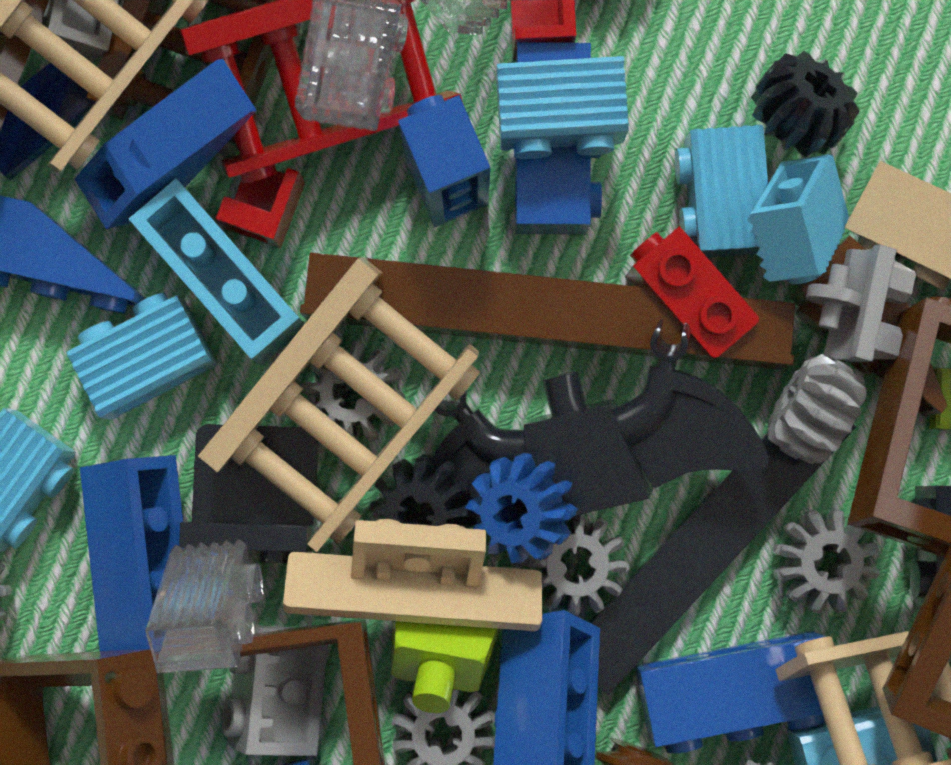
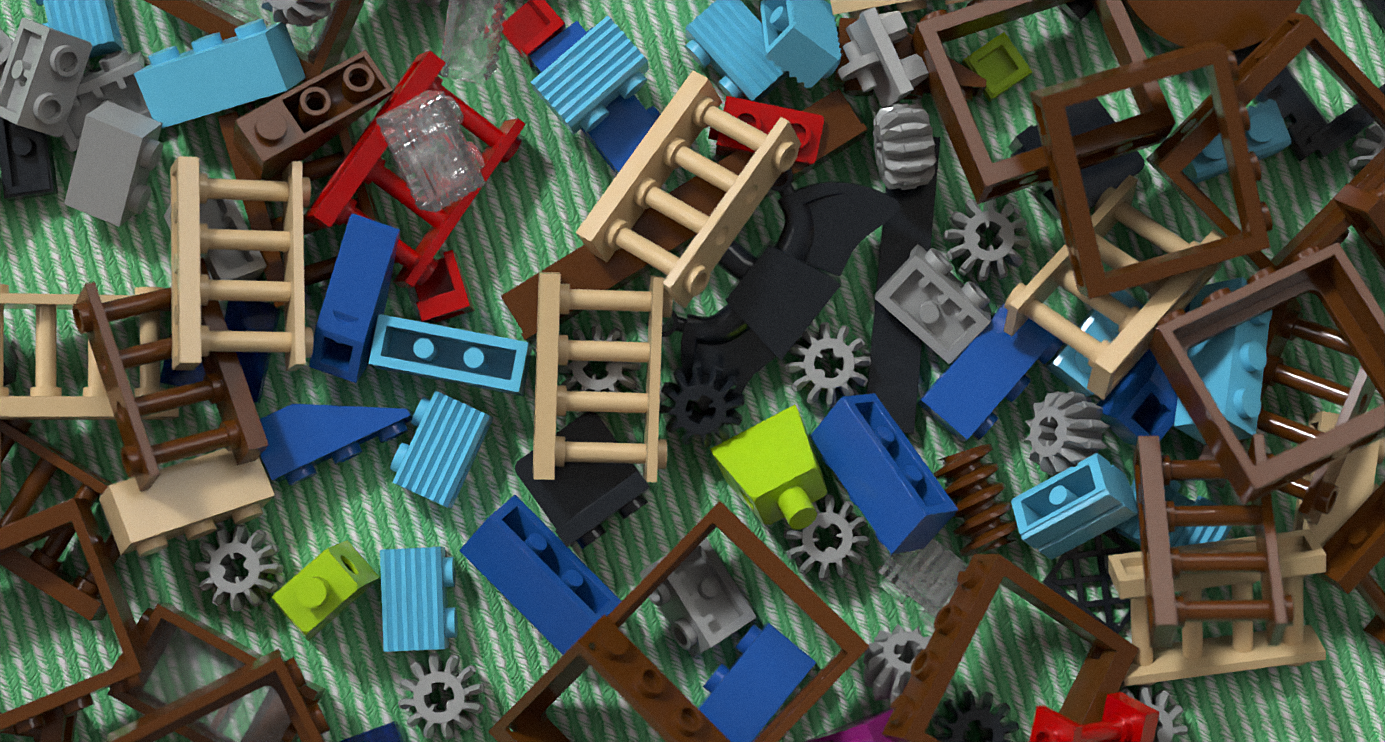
camera: 35 degrees left, 0 degrees up
(204, 608) = (615, 566): clear brick -> none
(416, 578) = (732, 447): tan bracket -> none
(445, 158) = (544, 169): blue brick -> none
(533, 485) = (746, 348): blue gear -> none
(556, 235) = (652, 162): none -> tan fence
(728, 587) = (936, 303): none -> light grey bracket

